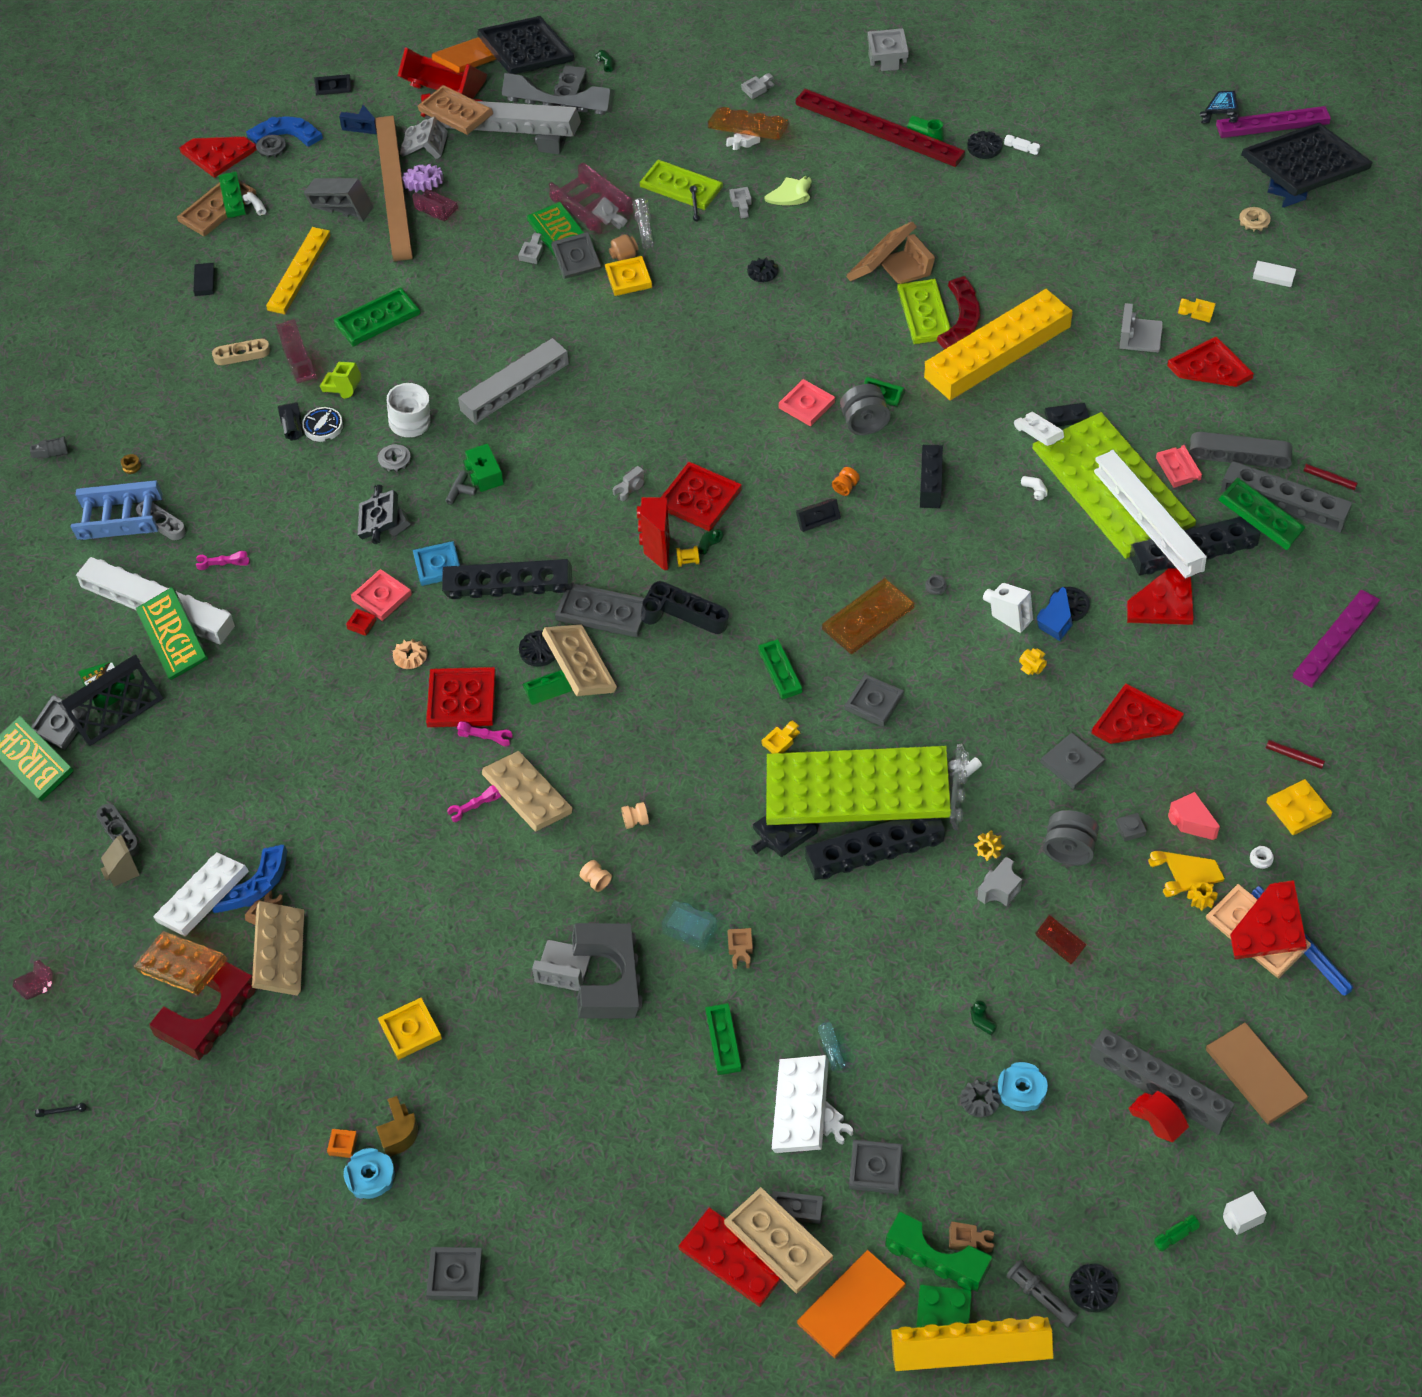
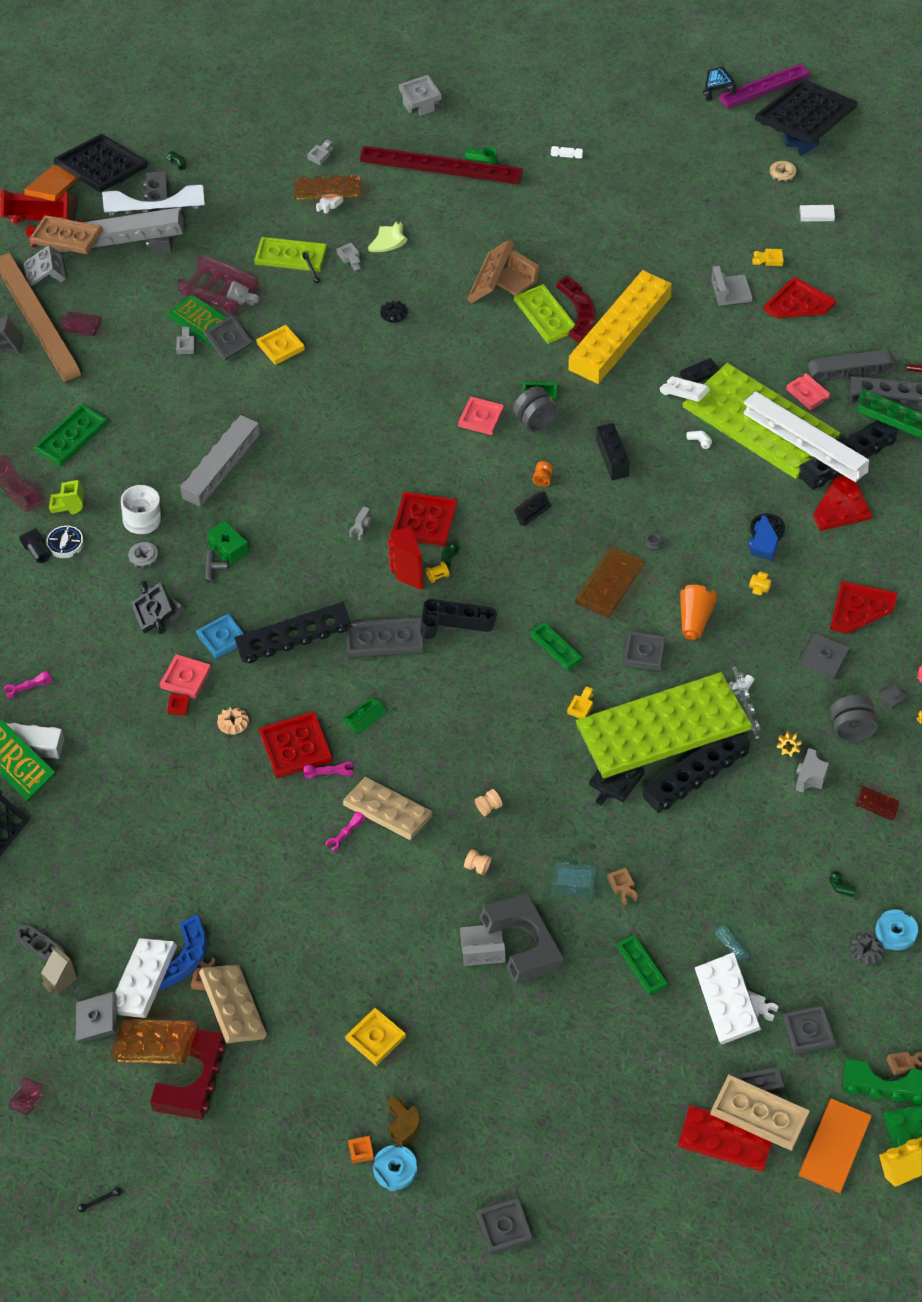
camera: 20 degrees left, 0 degrees up
(137, 921) = (96, 1017): none -> plate
(422, 178) = (60, 302): lavender gear -> none
(537, 649) = (343, 685): black wheel -> none
(579, 660) = (384, 685): tan plate -> none
(623, 247) = (266, 321): medium nougat head -> none
(642, 217) = (270, 290): clear pin -> none
(947, 671) = (696, 609): none -> orange cone
(984, 145) = (535, 160): black wheel -> none
(1010, 605) = (723, 542): white torso -> none

